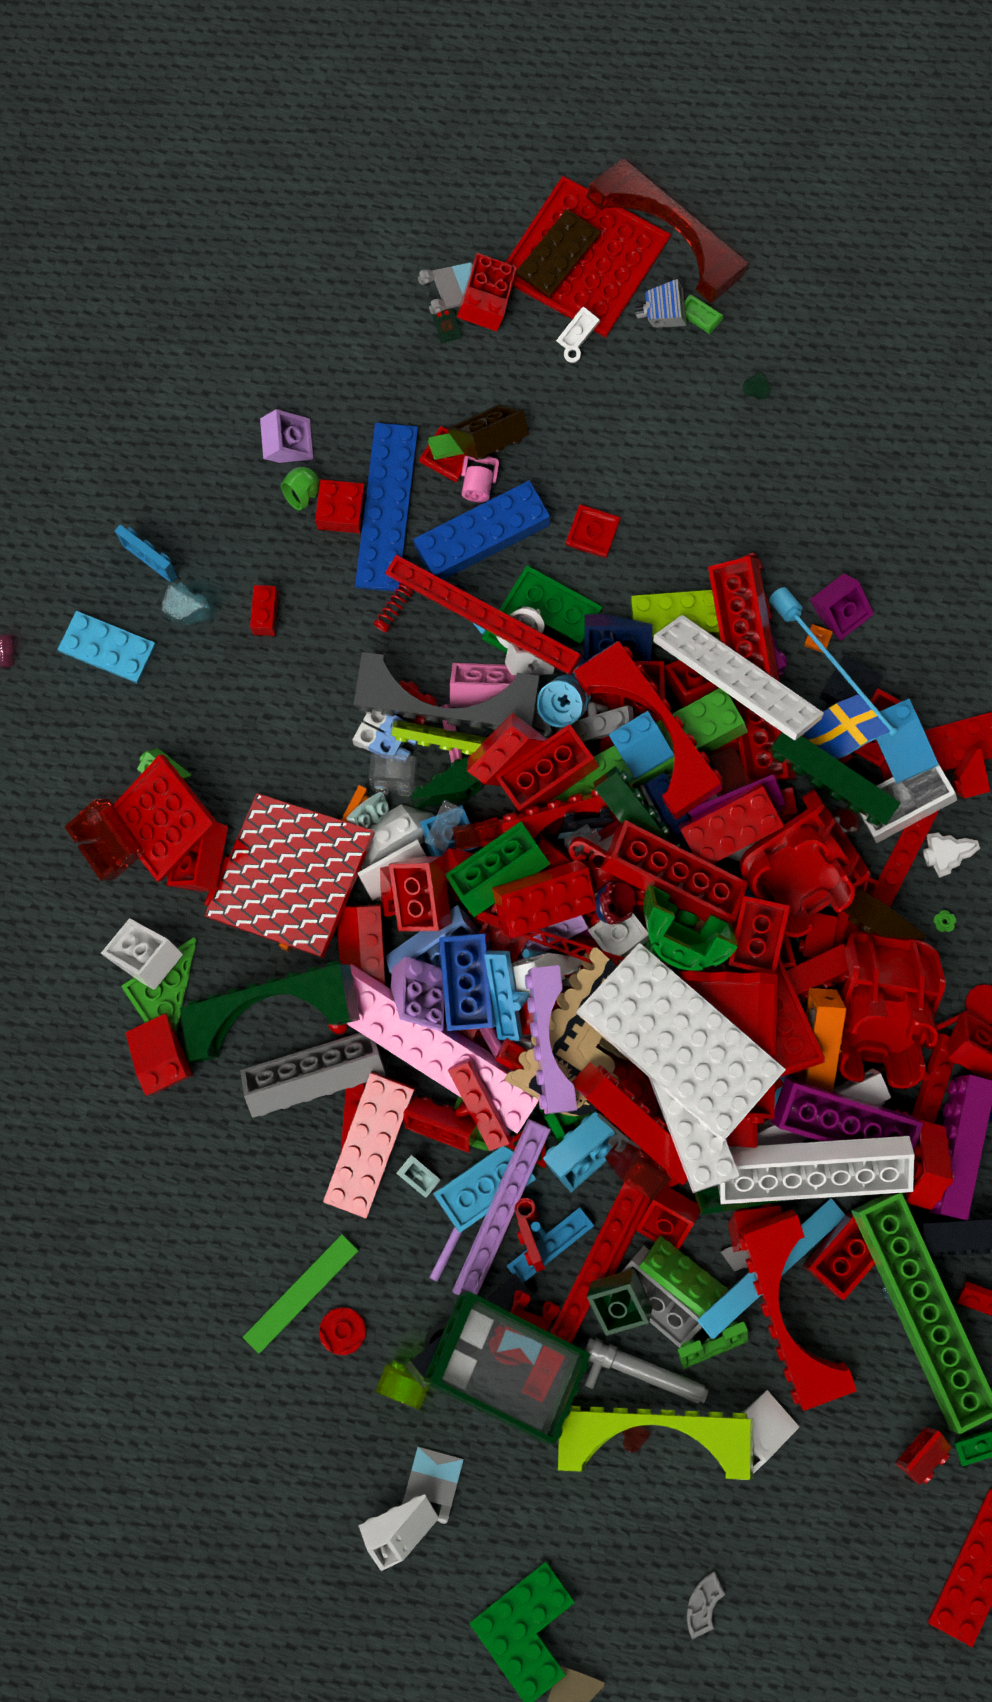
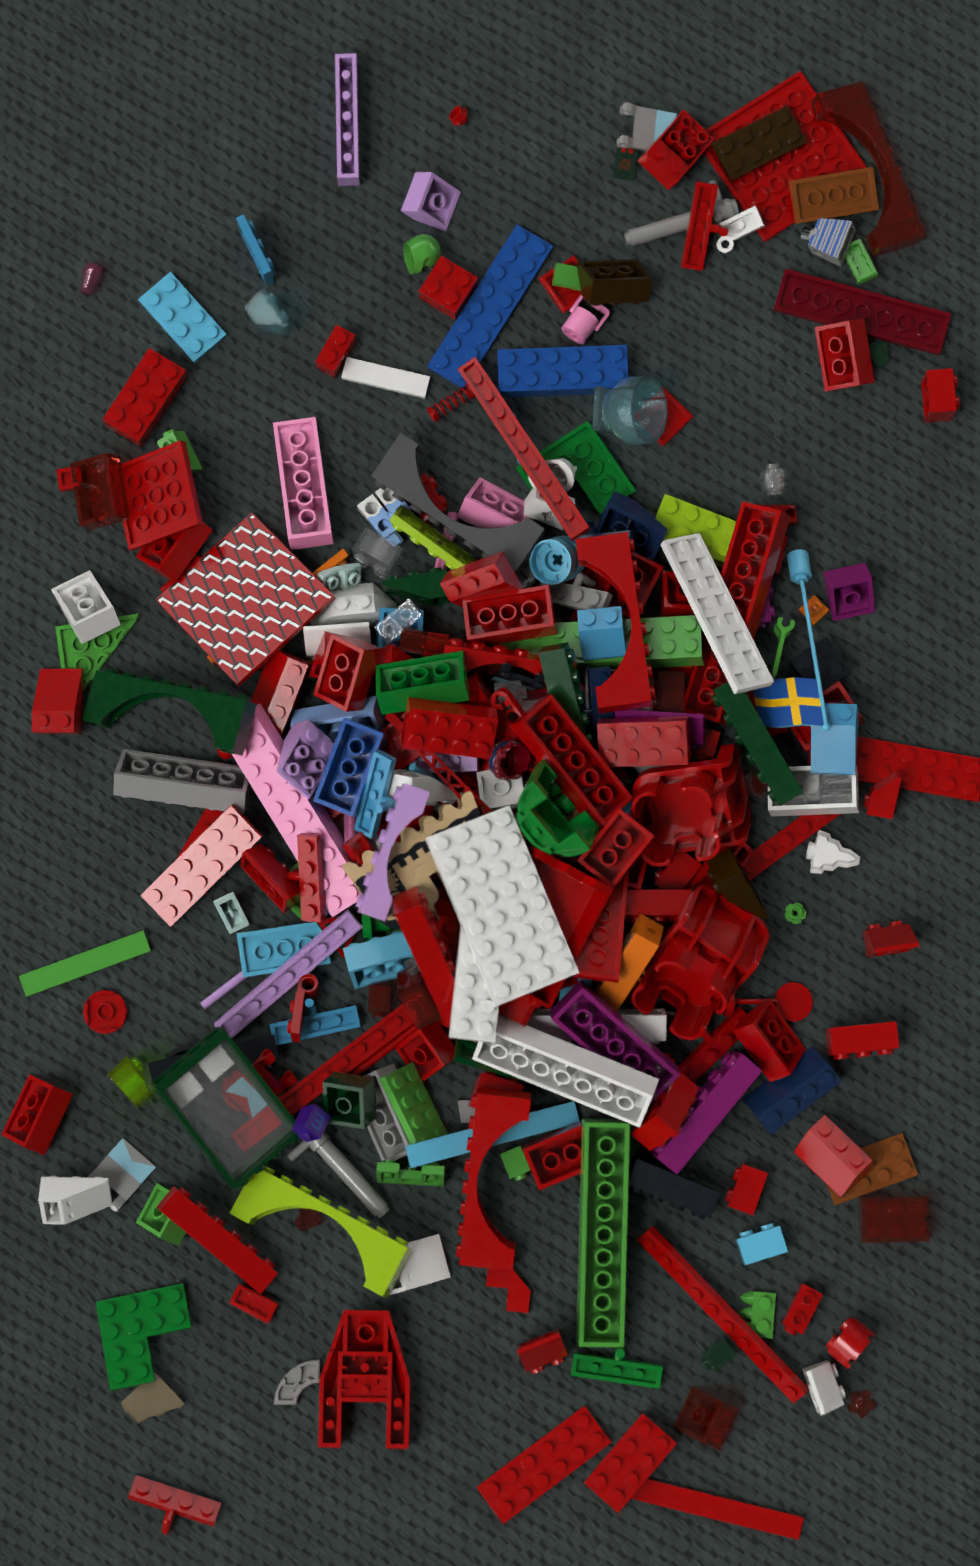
camera: 20 degrees right, 5 degrees up
(67, 845) = (65, 480): none -> red plate
(106, 734) = (145, 397): none -> red brick
(175, 401) = (347, 119): none -> lavender brick
(275, 352) = (458, 116): none -> red plate
(292, 744) = (303, 483): none -> bright pink slope
(322, 613) = (385, 377): none -> white tile
(324, 1465) = (37, 1114): none -> red slope
(498, 1501) = (158, 1223): none -> bright green slope
(543, 346) = (700, 226): none -> red plate
(548, 331) = (722, 210): none -> light grey cylinder
(559, 1502) = (217, 1240): none -> red brick
(560, 543) = (626, 415): none -> clear light blue plate
(594, 1342) = (311, 1123): none -> dark purple brick
(599, 1191) = (379, 1000): none -> clear red brick
(623, 1547) = (253, 1303): none -> red plate
(648, 266) = (833, 195): none -> dark orange plate
(723, 538) = (774, 479): none -> clear head
(725, 356) = (884, 316): none -> dark red plate
(729, 399) = (844, 354): none -> red slope
(763, 1559) = (364, 1367): none -> red wedge
(804, 678) = (781, 634): none -> bright green flag
(806, 1285) = (515, 1163): none -> bright green brick
(833, 394) = (939, 395): none -> red brick
(870, 1409) = (518, 1292): none -> red tile

